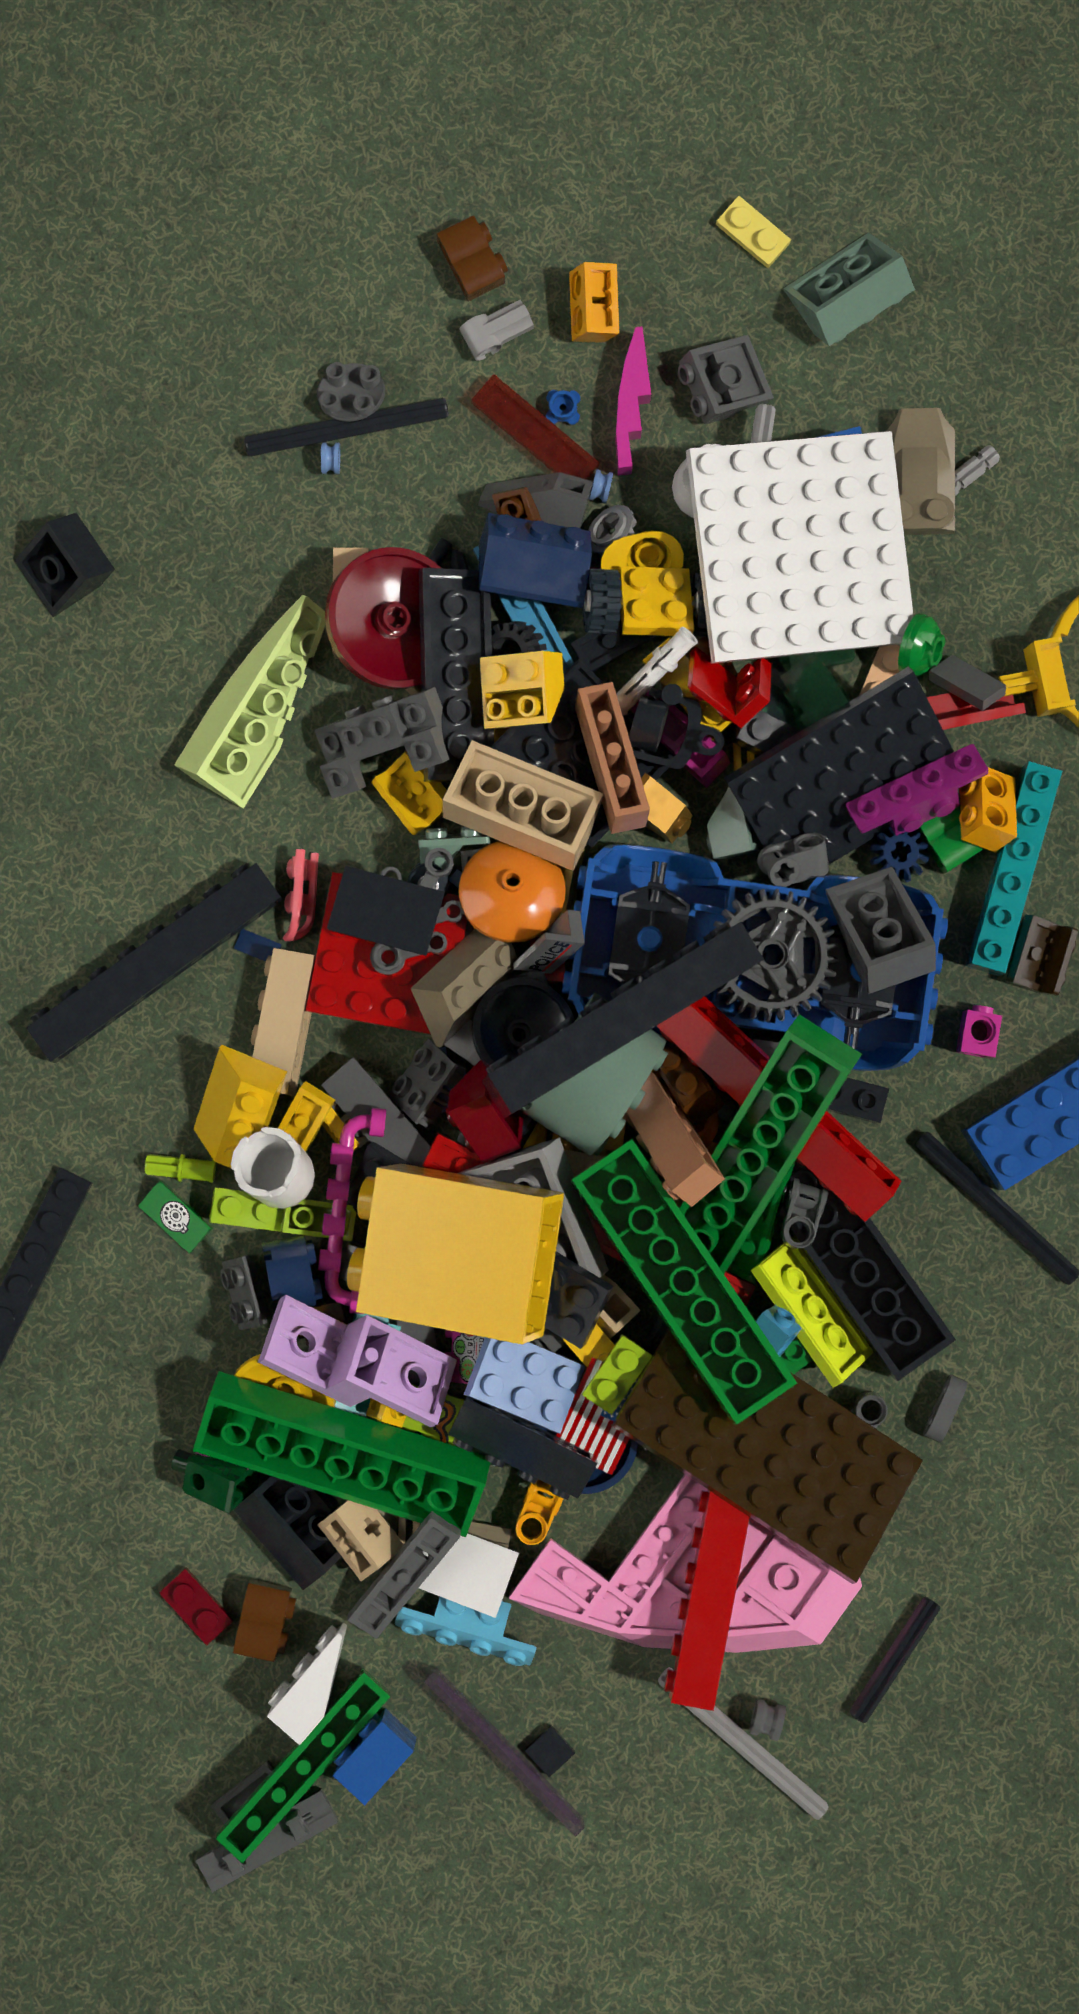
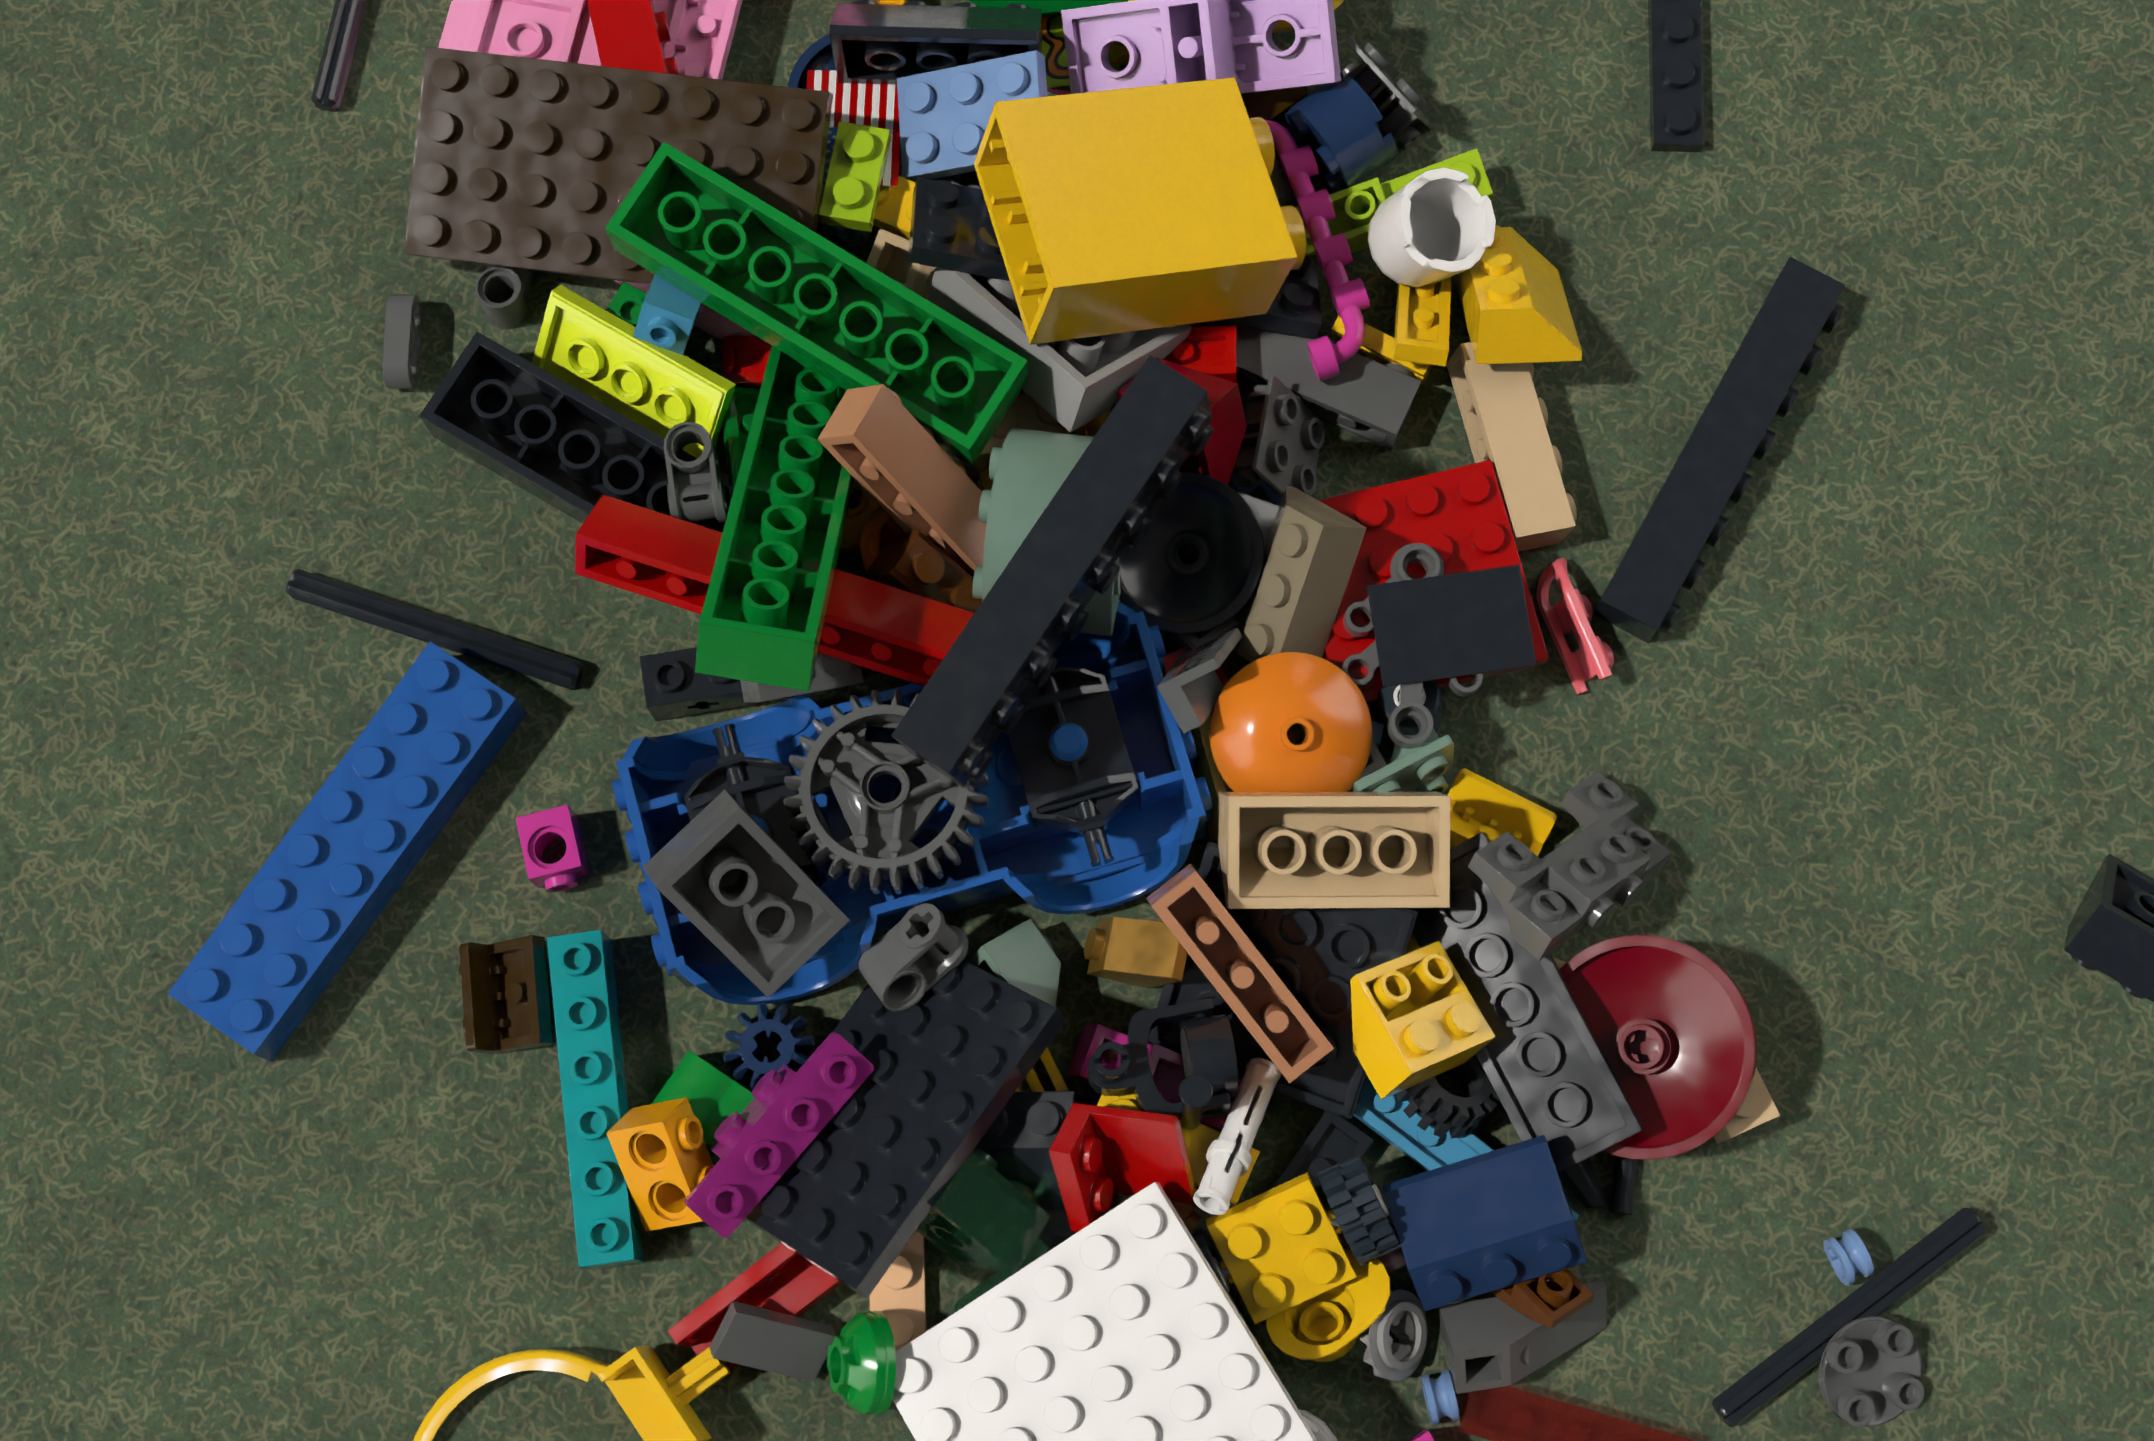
camera: 160 degrees right, 10 degrees down
(175, 1216) = (1525, 154): green slope -> none
(180, 1167) = (1551, 210): lime axle -> none
(245, 720) = (1770, 839): yellowish green wedge -> none
(255, 945) = (1596, 537): dark blue piece -> none

